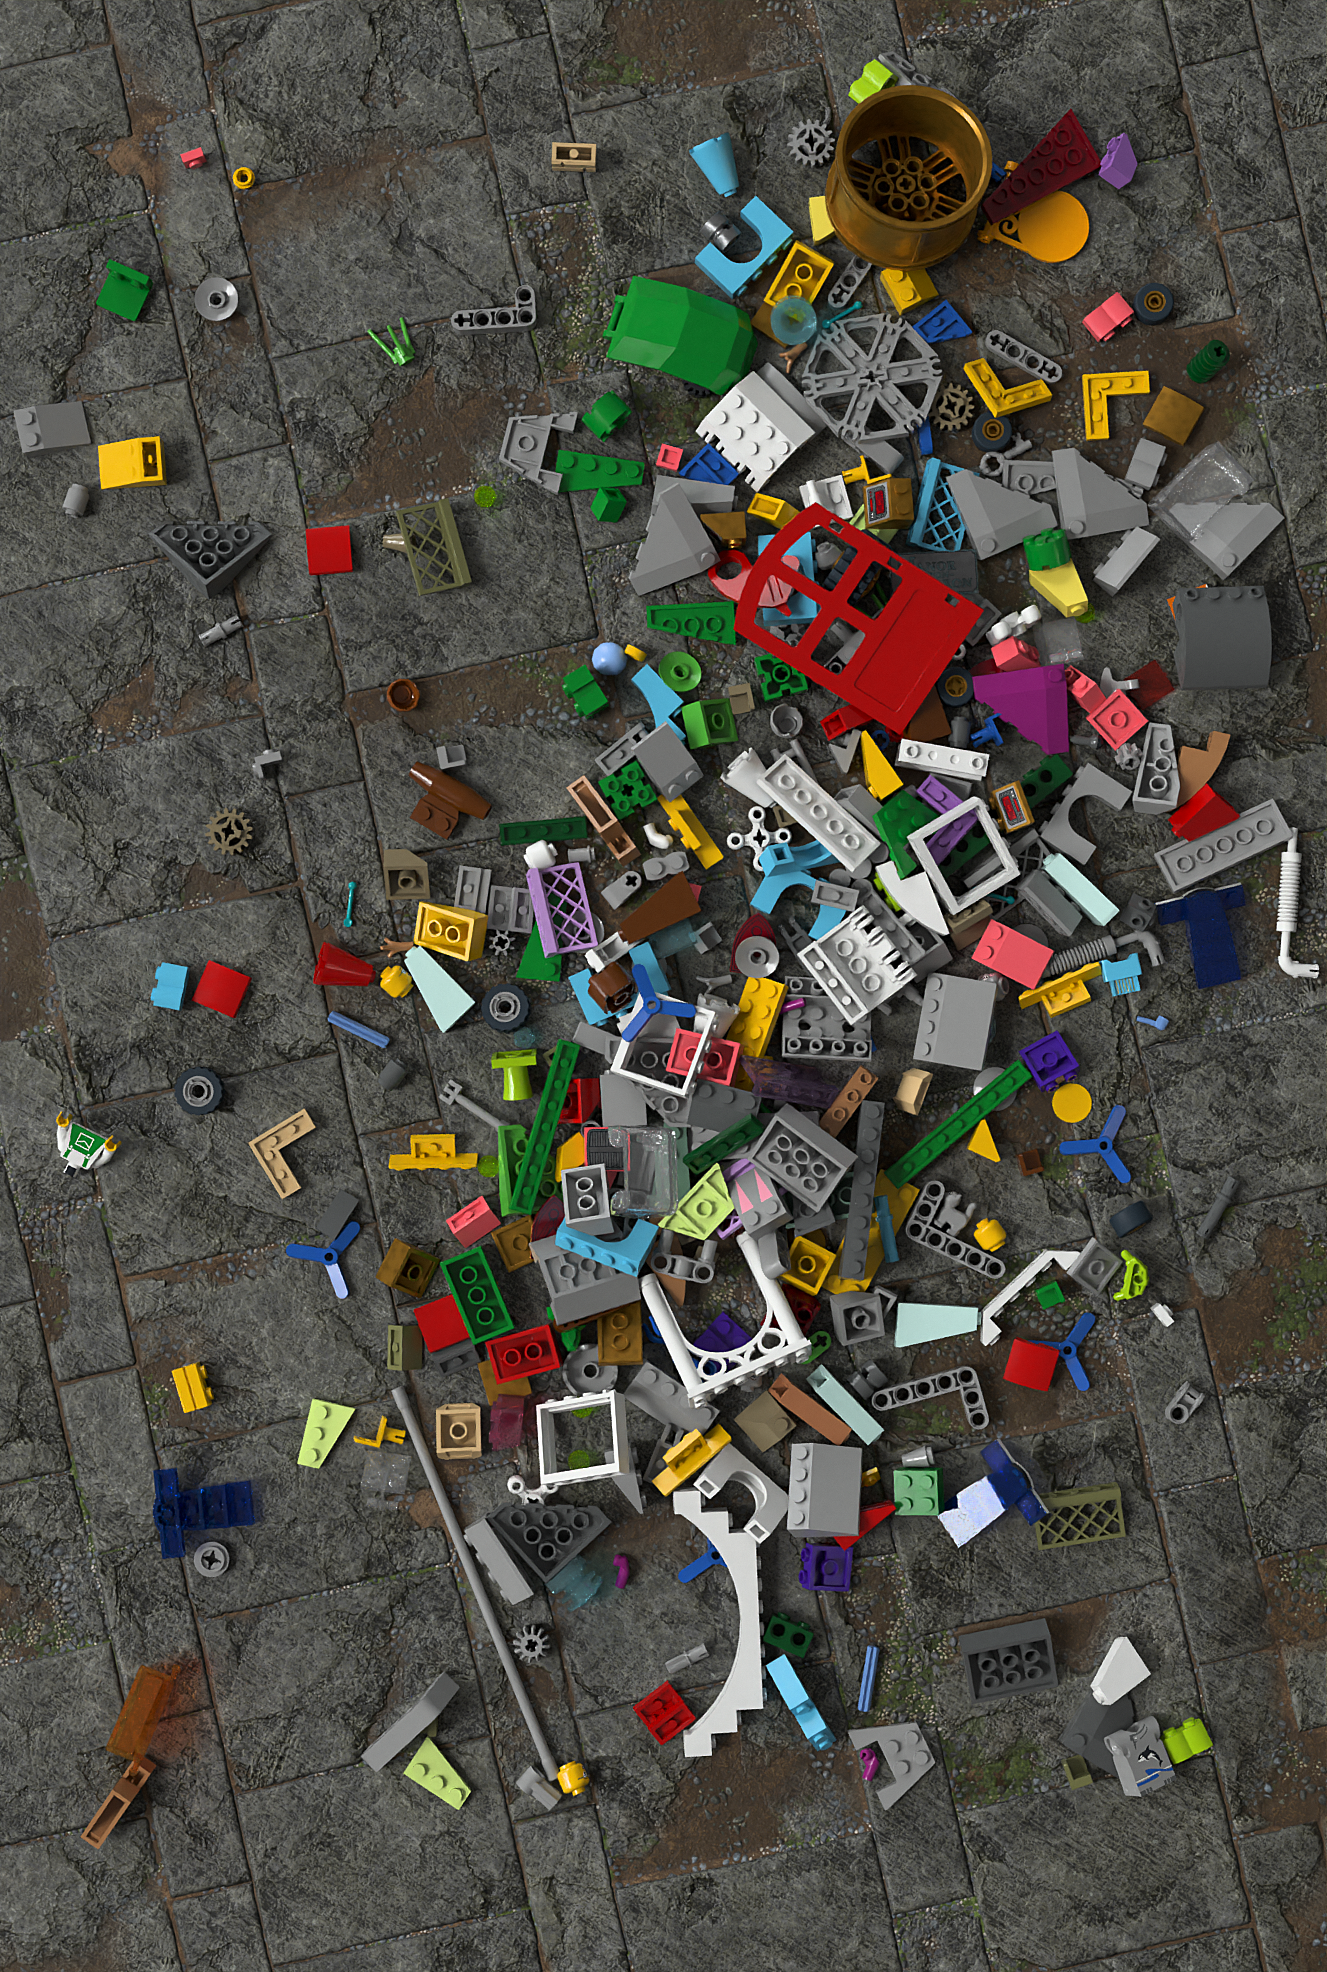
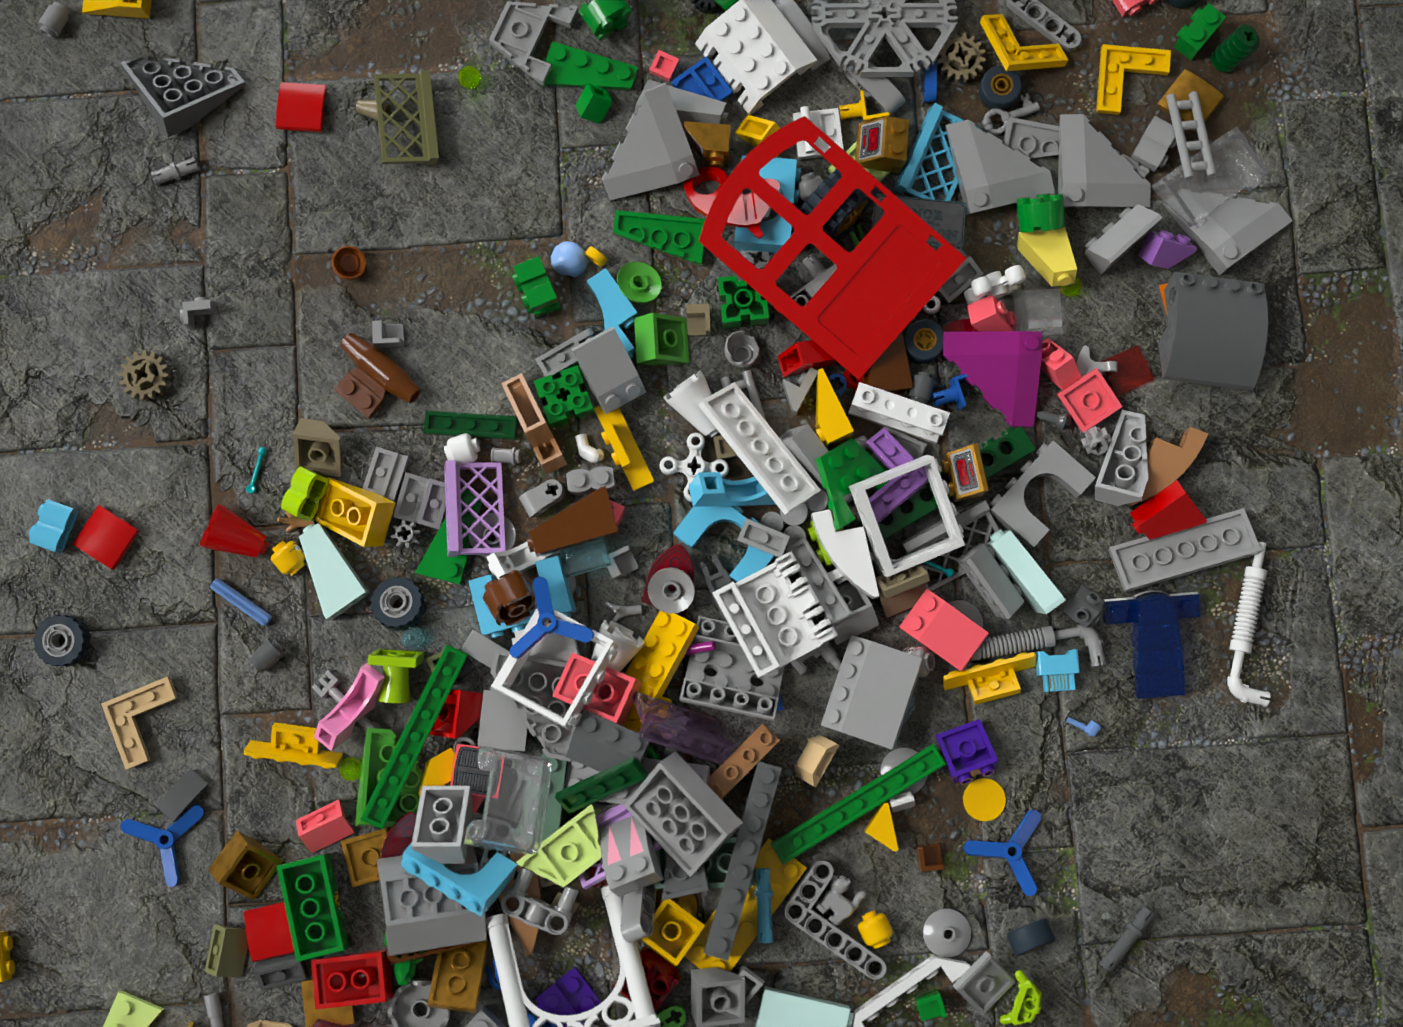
camera: 15 degrees right, 5 degrees down
(401, 920) = (304, 494): none -> lime brick
(484, 1106) = (358, 701): none -> bright pink arch
(997, 1116) = (902, 801): none -> white slope
(1046, 1220) = (934, 931): none -> light grey dish
(1168, 565) = (1165, 249): none -> medium lavender slope
(1173, 465) = (1183, 146): none -> light grey bar
(1175, 344) = (1199, 31): none -> green brick

